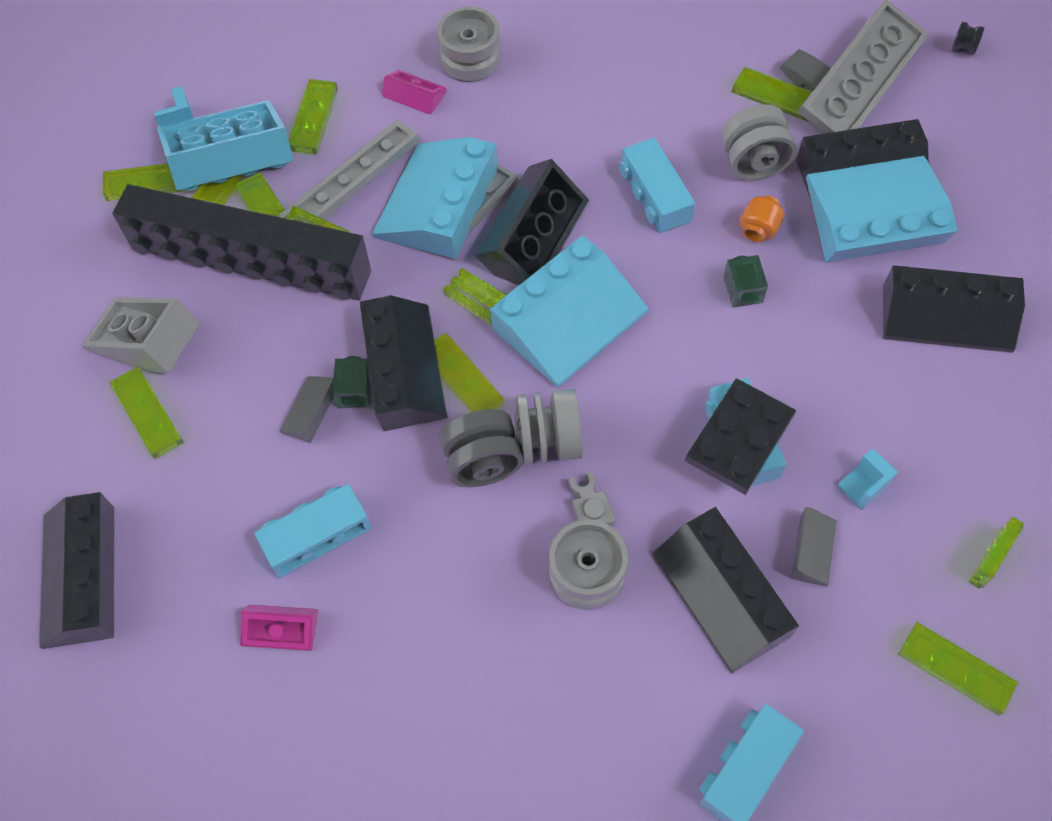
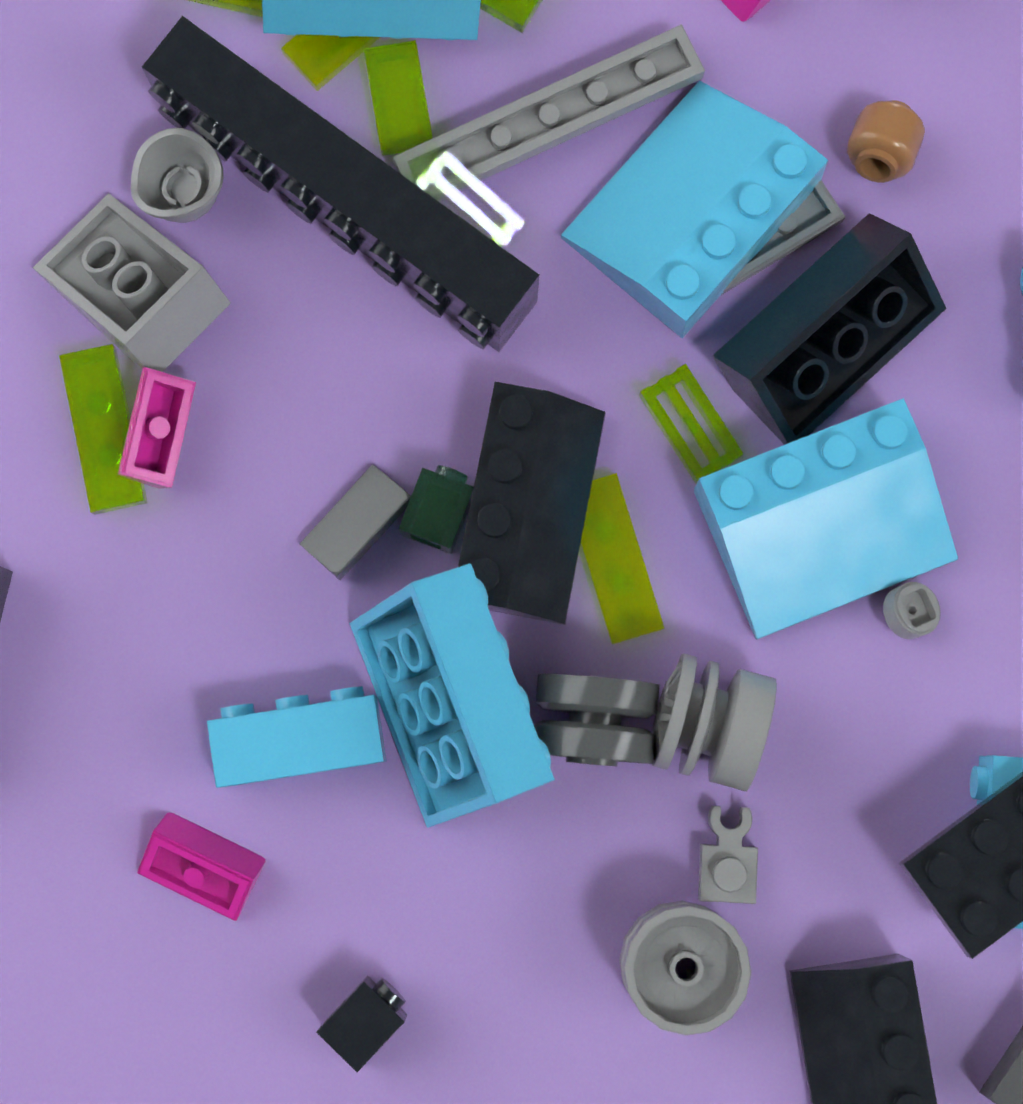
camera: 15 degrees right, 20 degrees up
(150, 270) = (176, 176): none -> light grey helmet
(176, 396) = (156, 428): none -> dark pink slope
(392, 464) = (451, 696): none -> medium azure slope
(409, 673) = (364, 1021): none -> black brick
(523, 134) = (885, 141): none -> medium nougat head
(635, 341) = (911, 610): none -> light grey tile

